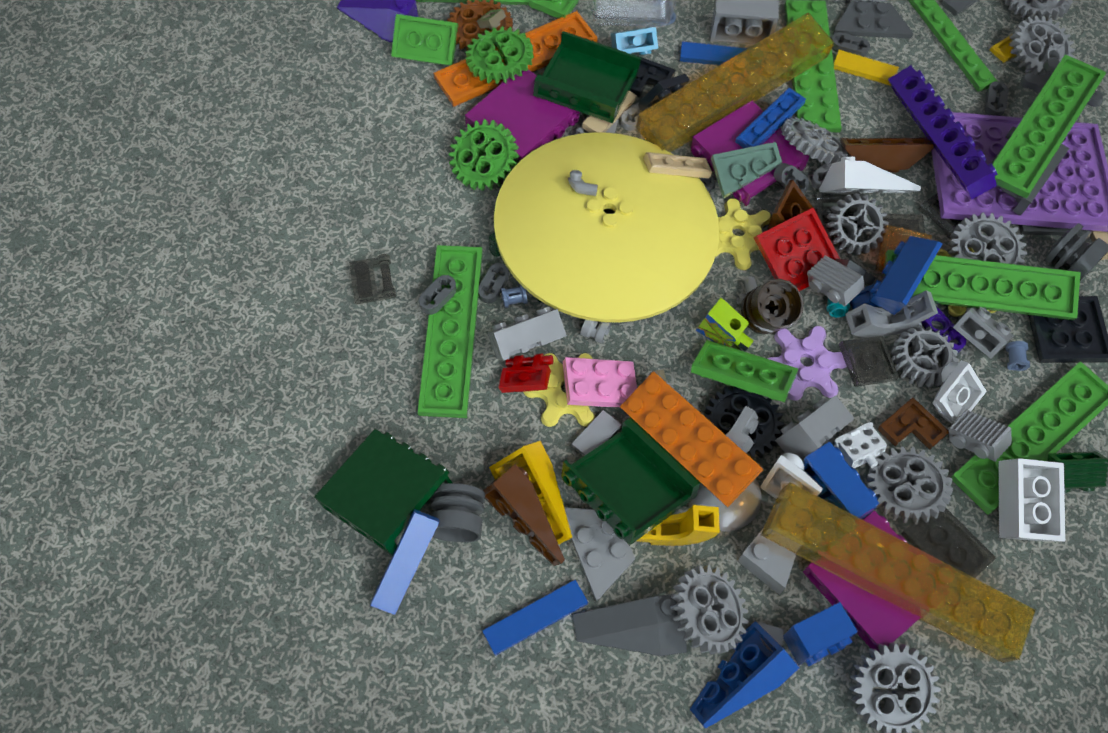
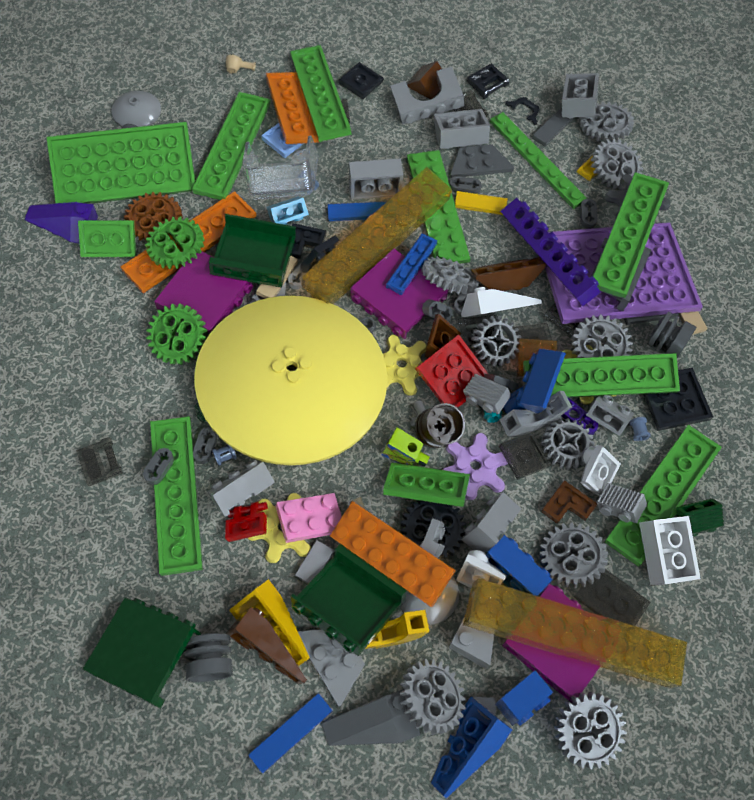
camera: 15 degrees left, 0 degrees up
(404, 562) = (171, 711): tile -> none
(491, 19) = (162, 212): dark tan plate -> none
(580, 186) = (263, 351): light grey arm -> none
(595, 330) = (298, 471): light grey wheel -> none
(677, 165) = (341, 316): tan tile -> none
(744, 166) = (396, 308): sand green wing -> none
(861, 446) = (530, 530): white piece -> none

